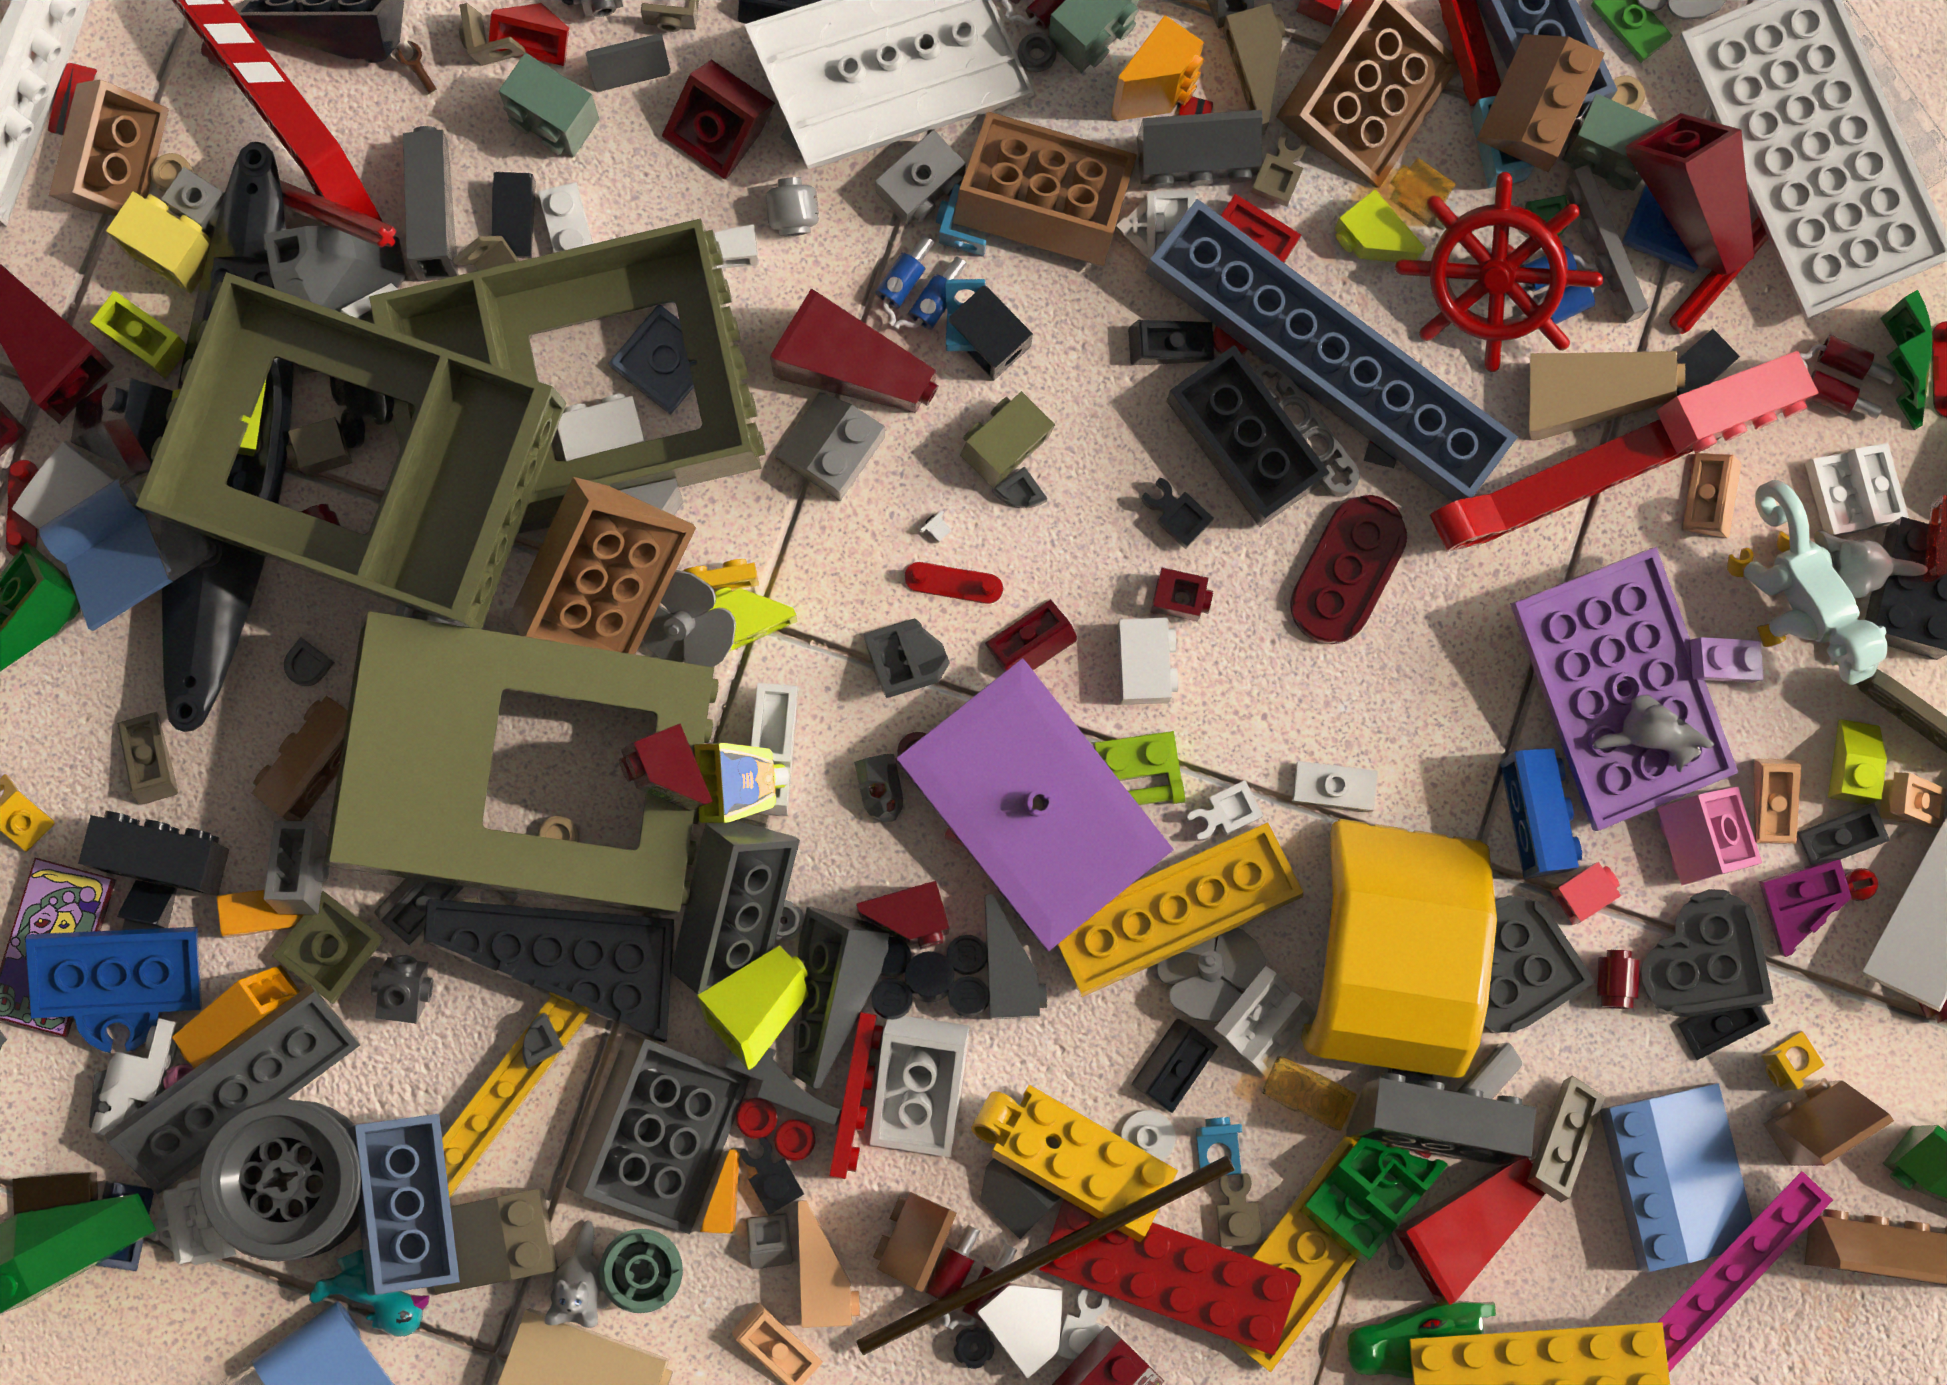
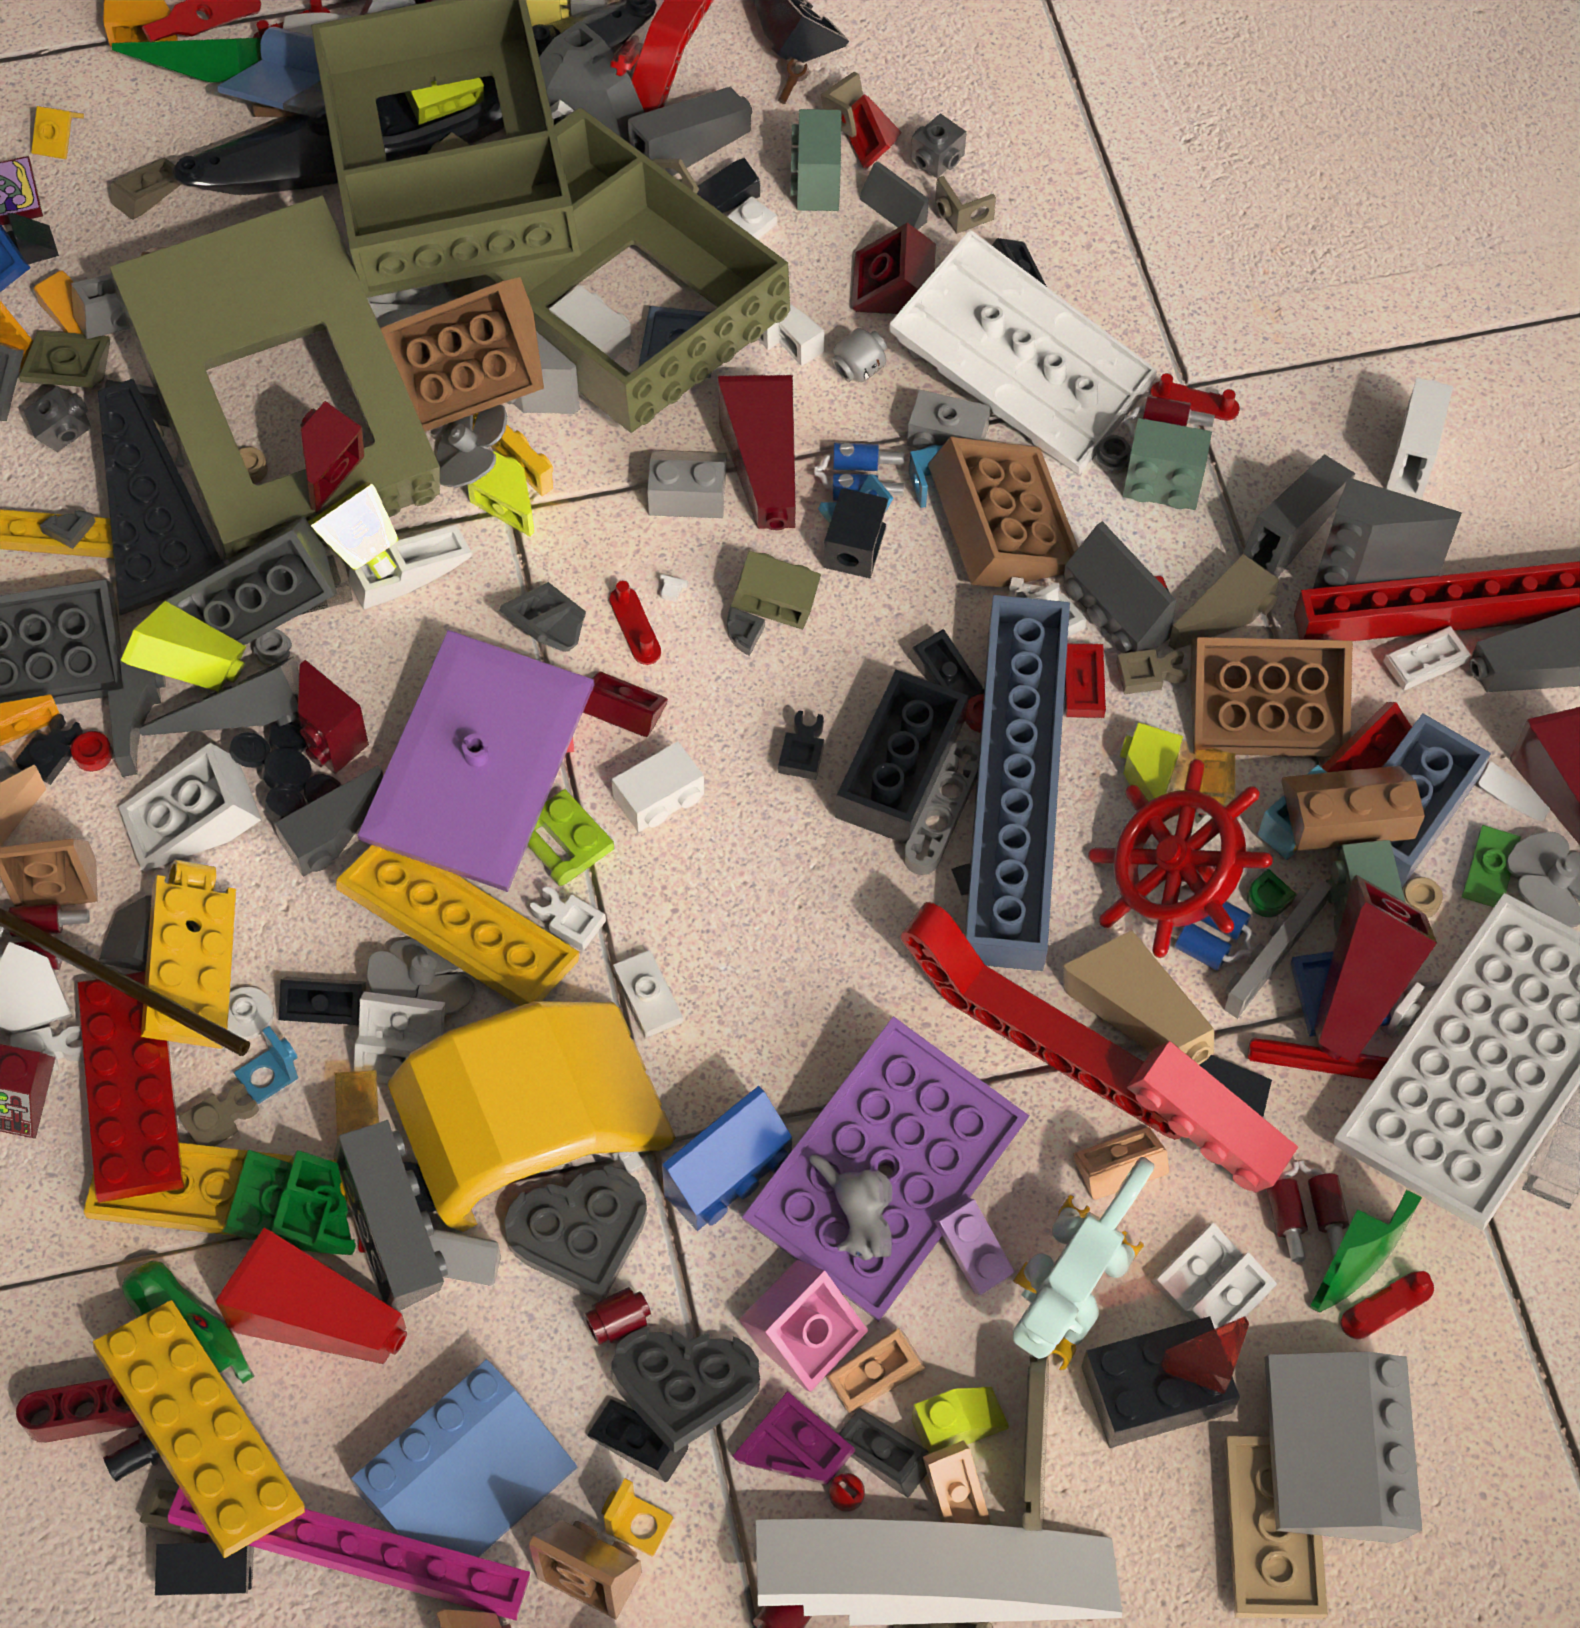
camera: 65 degrees right, 20 degrees down
(154, 853) = (70, 213): black brick -> none
(756, 1118) = (93, 714): red tile -> none
(859, 1078) = (140, 770): red plate -> none
(880, 786) = (420, 653): dark grey rock -> none
(1159, 73) = (1152, 517): light orange slope -> none
(1172, 582) = (733, 782): dark red brick -> none
(1348, 569) = (844, 904): dark red tile -> none
(1566, 1139) = (437, 1342): dark tan plate -> none
(1587, 892) = (681, 1245): coral brick -> none
(1864, 563) = (1139, 1306): light grey animal -> none

